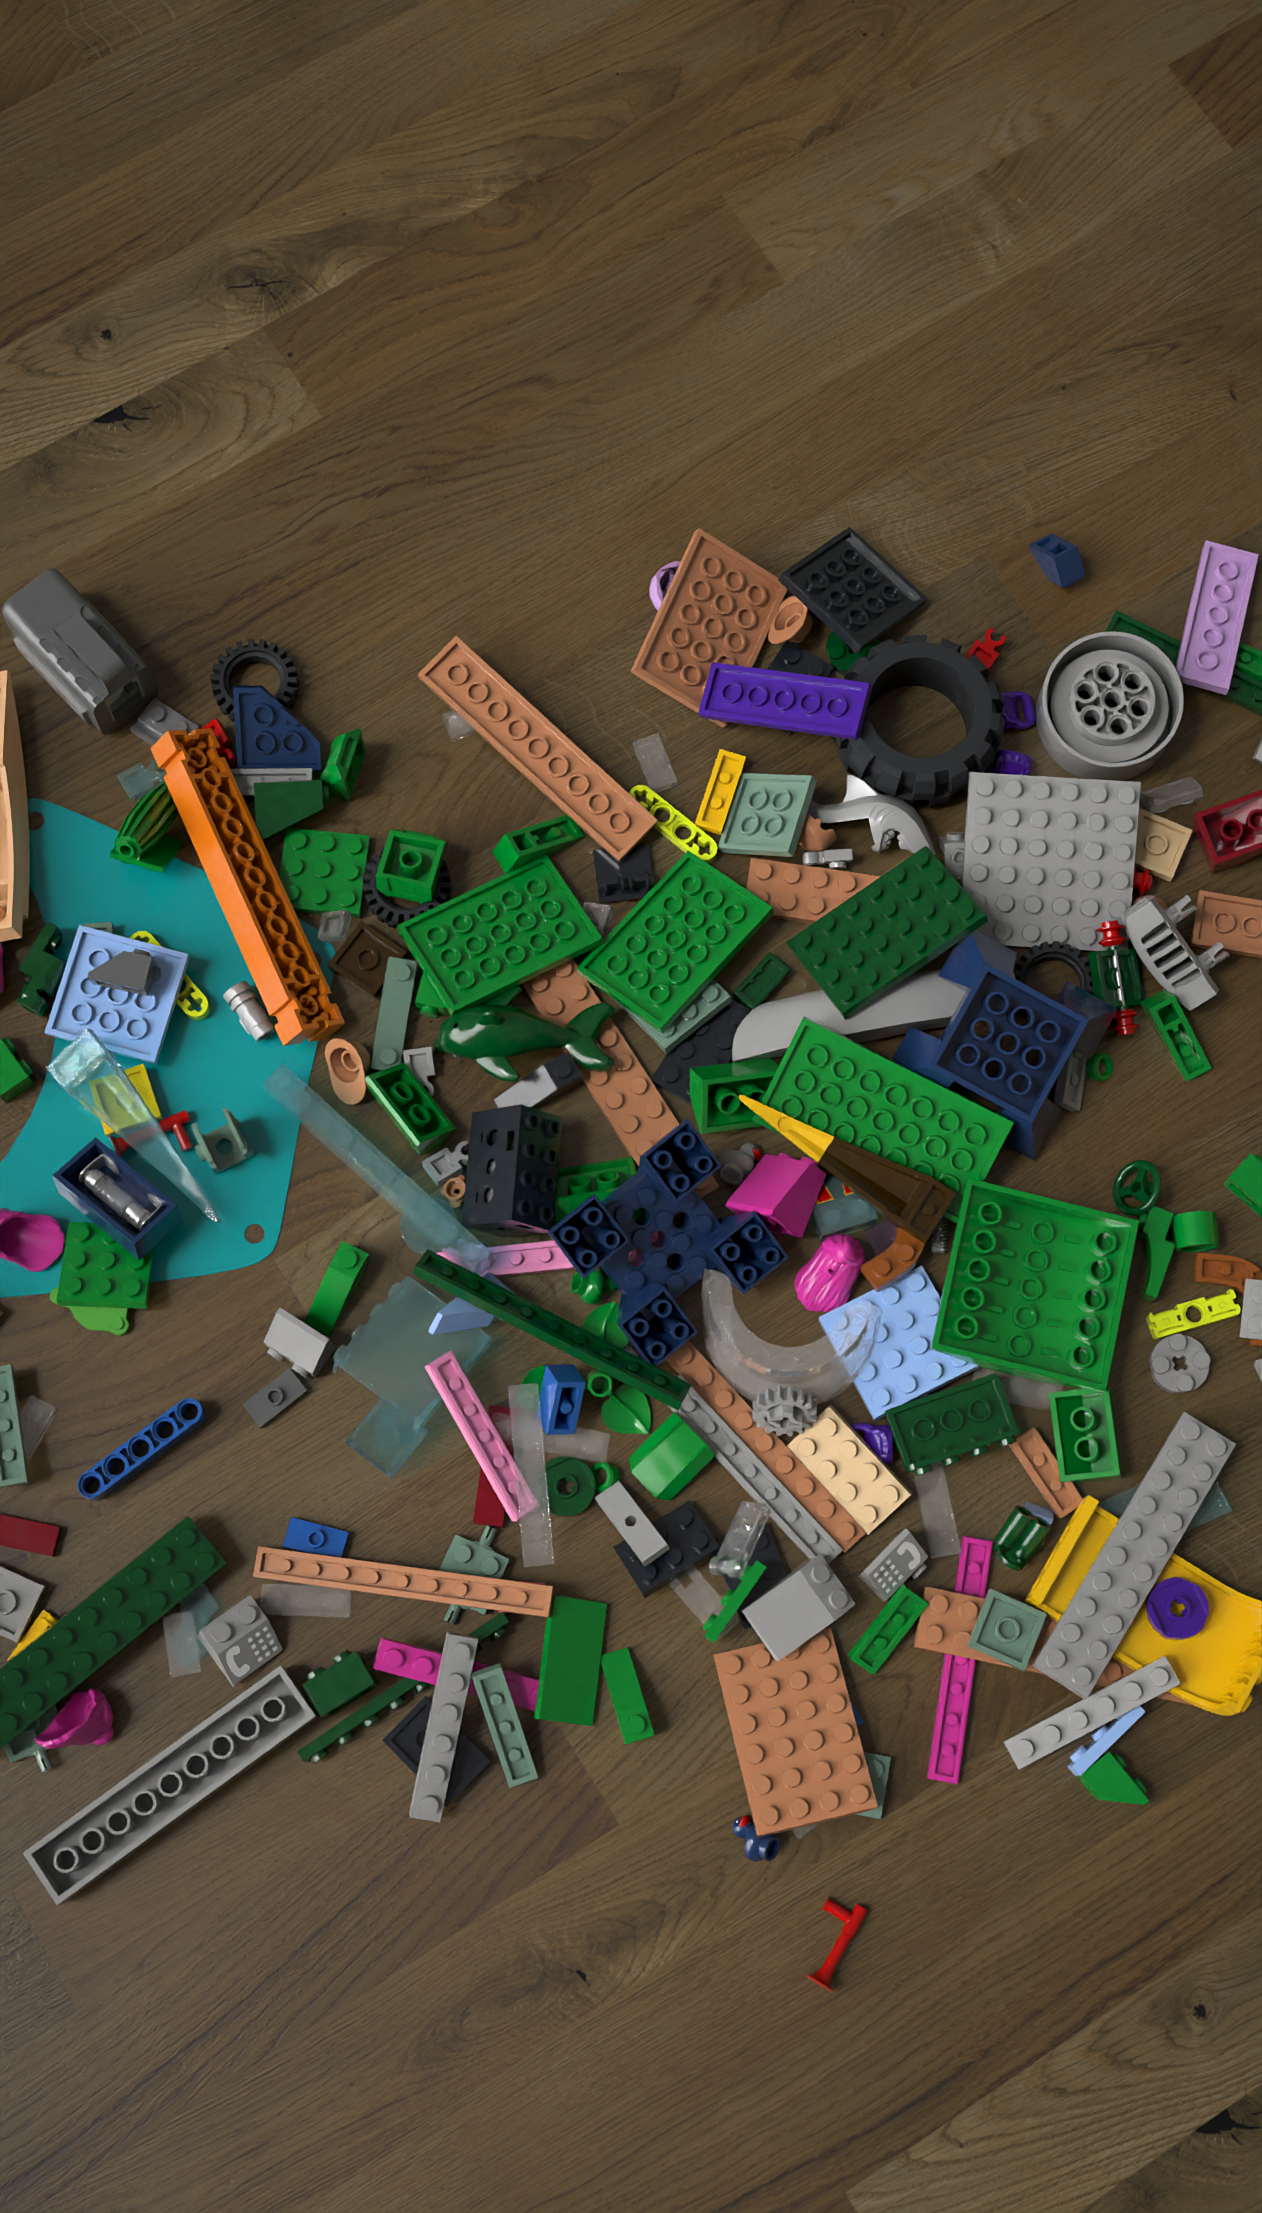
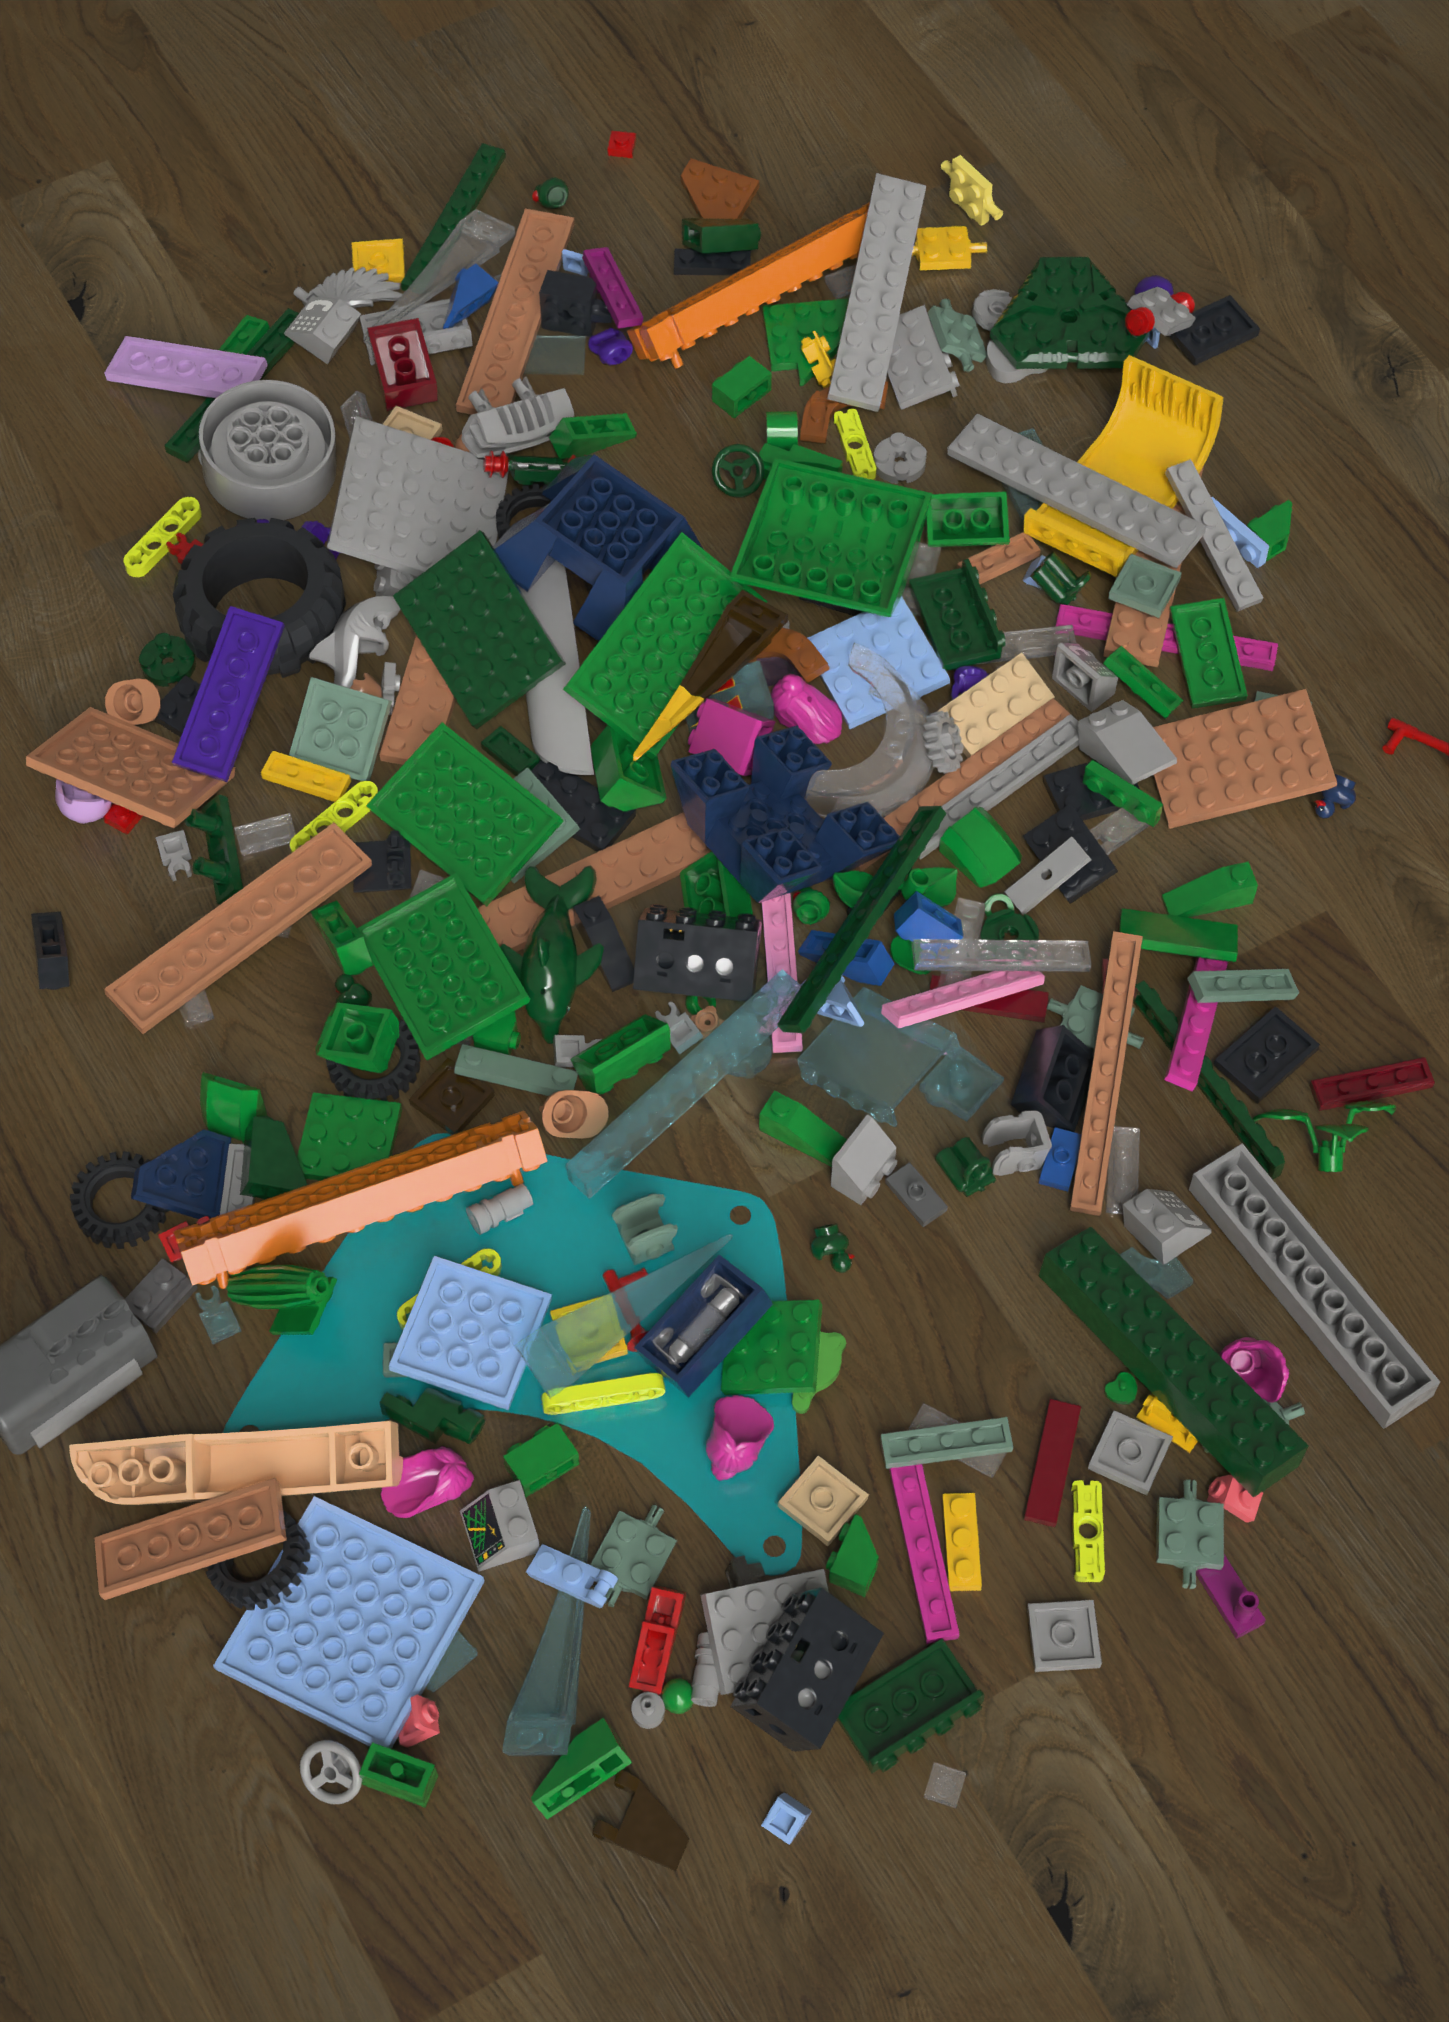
camera: 85 degrees left, 15 degrees down
(64, 1119) = (604, 1394): none -> neon yellow beam
(71, 1595) = (1122, 1390): none -> green piece
(126, 972) = (453, 1307): dark grey slope -> none
(127, 1450) = (972, 1330): blue beam -> none
(182, 1644) = (1173, 1273): clear plate -> none
(216, 1317) = (831, 1241): none -> dark green animal
(302, 1445) = (966, 1167): none -> dark green piece
(303, 1503) = (1028, 1126): none -> light grey piece
(315, 1811) = (1331, 1150): none -> green plant
(334, 926) = (411, 1126): clear plate -> none
(340, 1684) = (1207, 1124): dark green brick -> none
(398, 1531) = (1055, 1078): none -> black slope
(409, 1863) = (1372, 1083): none -> dark red tile
(443, 1727) = (1248, 1032): light grey plate -> none
(466, 859) = (351, 992): none -> dark green animal
(512, 587) = (50, 950): none -> black slope
(522, 1347) = (870, 963): none -> blue slope
(620, 727) = (220, 838): none -> dark green plate
(624, 683) = (175, 852): none -> light grey plate
(740, 1540) = (1062, 786): clear plate -> none
(852, 589) = (109, 646): black plate -> none
(935, 1703) = (1208, 653): none -> green tile
(1007, 621) = (158, 534): none -> neon yellow beam
(1058, 560) = (102, 487): dark blue slope -> none
(1183, 1592) = (1122, 449): dark purple plate -> none

